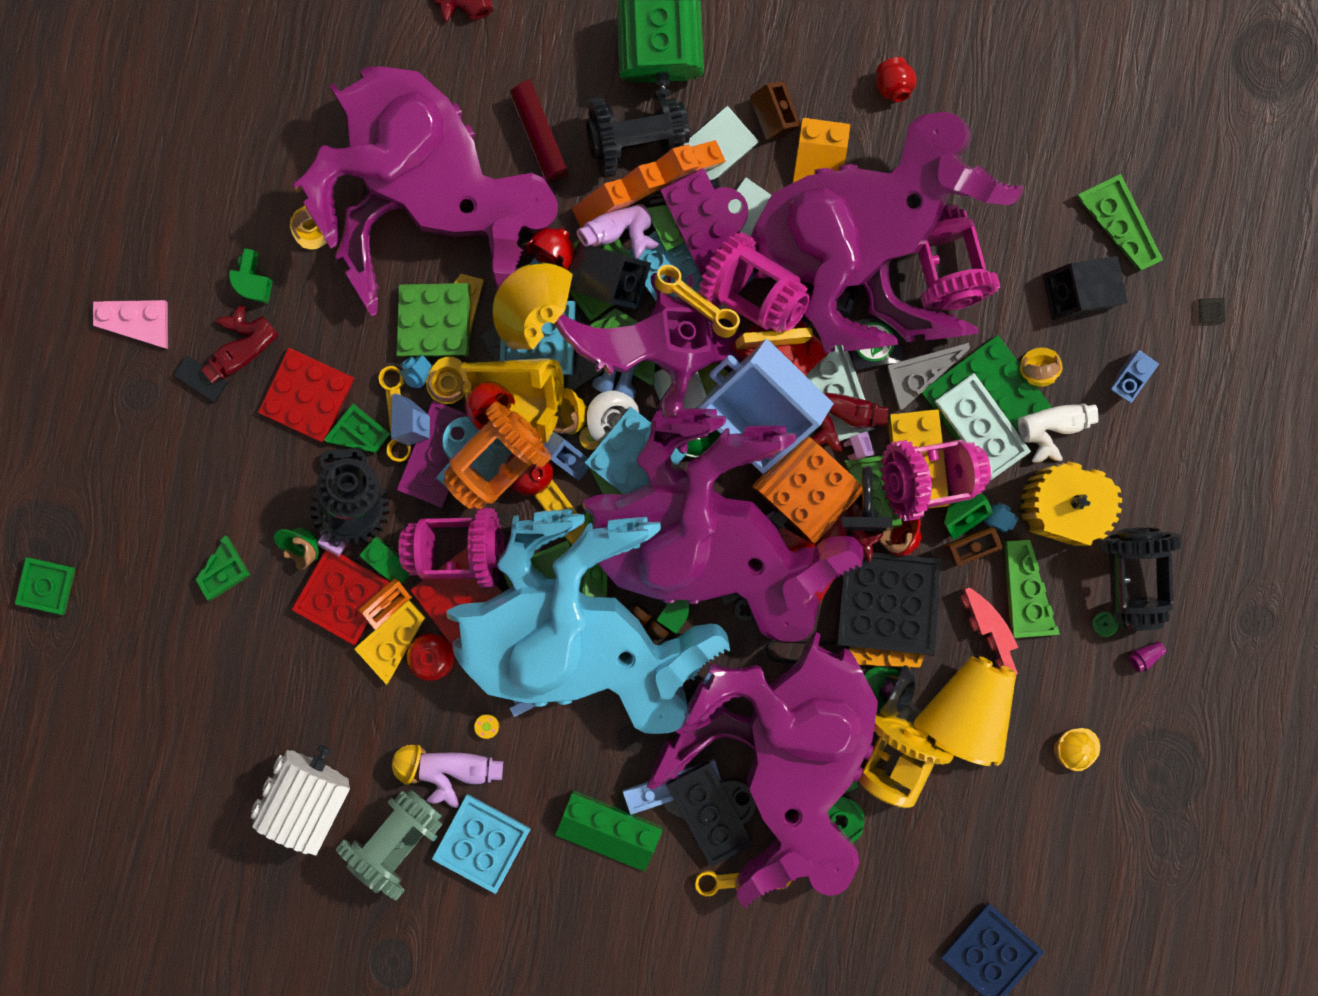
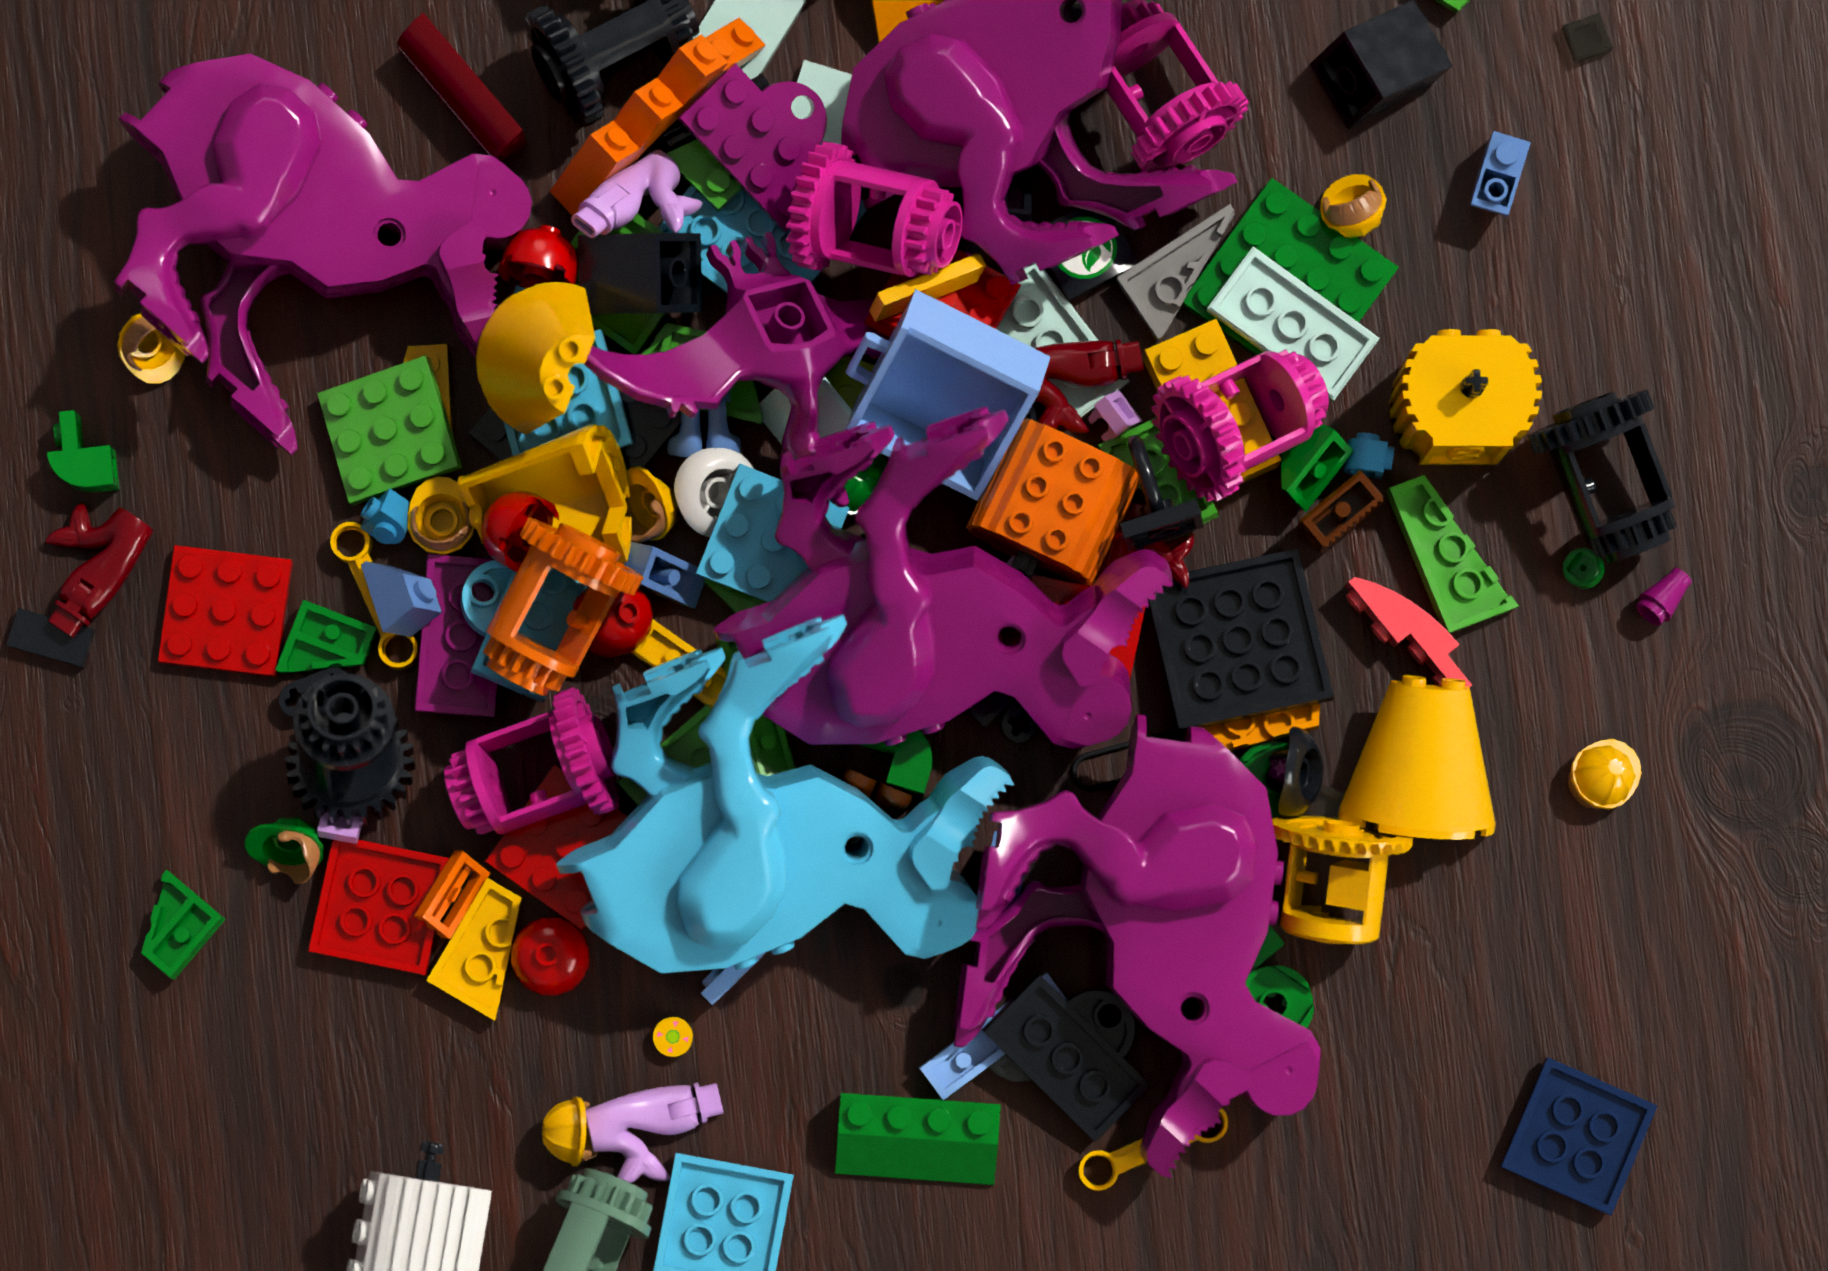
camera: 25 degrees left, 5 degrees down
(384, 560) = (432, 827): green slope -> none
(587, 440) = (689, 540): yellow tile -> none
(696, 301) = (790, 267): yellow piece -> none
(902, 539) = (1228, 535): red piece -> none
(1061, 419) = (1409, 275): white piece -> none

